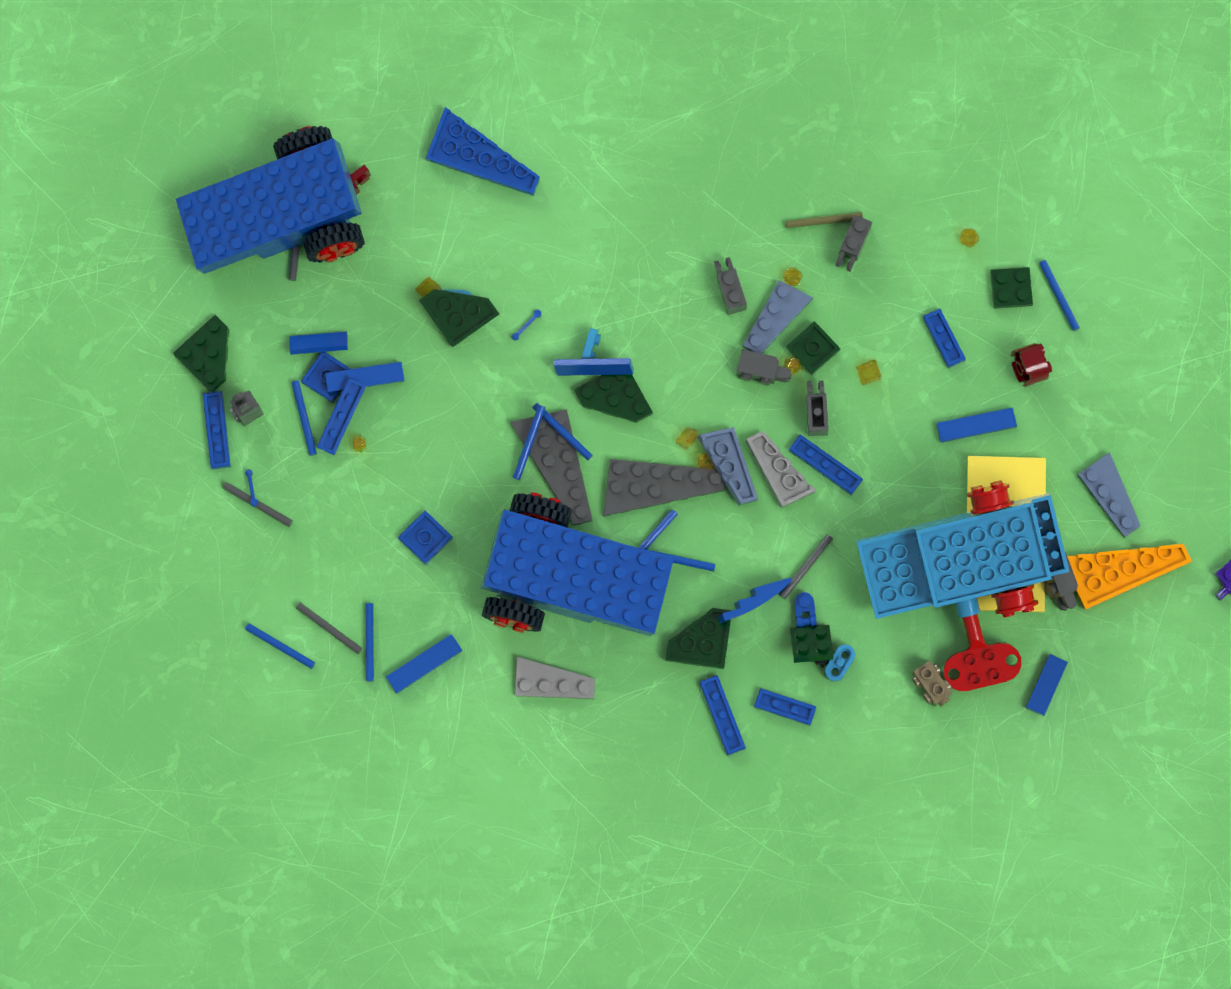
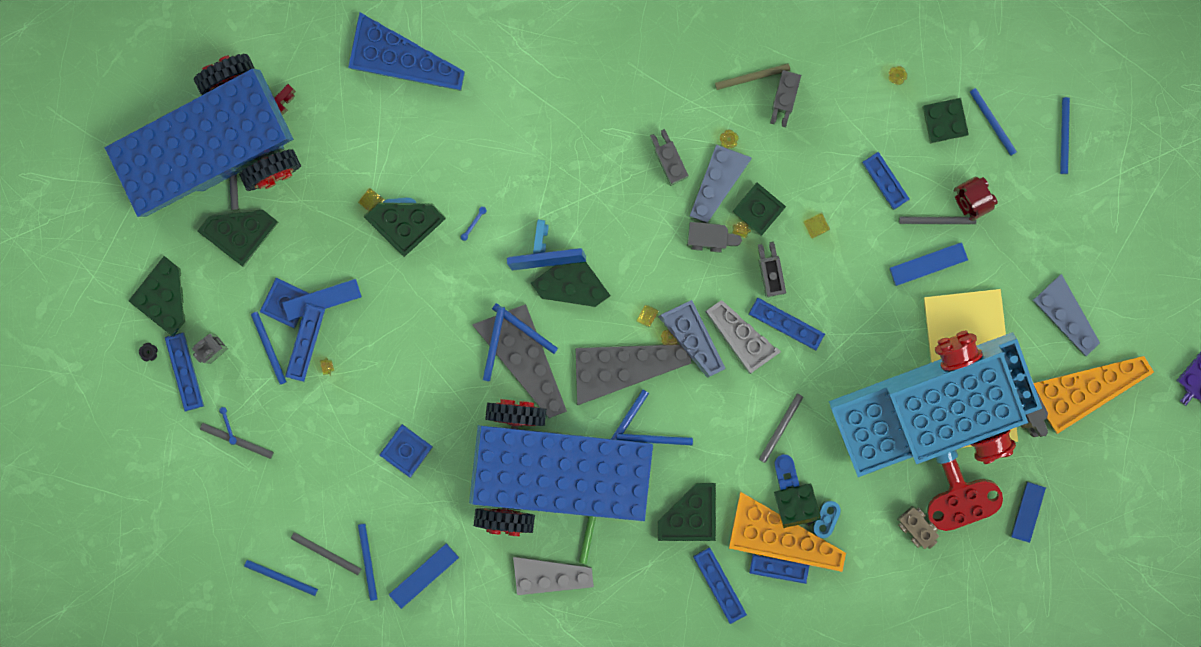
camera: 15 degrees left, 10 degrees up
(179, 405) = (143, 352): none -> black plate
(292, 302) = (238, 233): none -> dark green plate
(318, 343) = (271, 271): blue tile -> none
(595, 648) = (587, 539): none -> bright green bar
(759, 596) = (741, 466): blue slope -> none
(772, 667) = (761, 533): none -> light orange wing
(990, 383) = (935, 220): none -> dark grey bar
(1130, 318) = (1065, 135): none -> blue bar

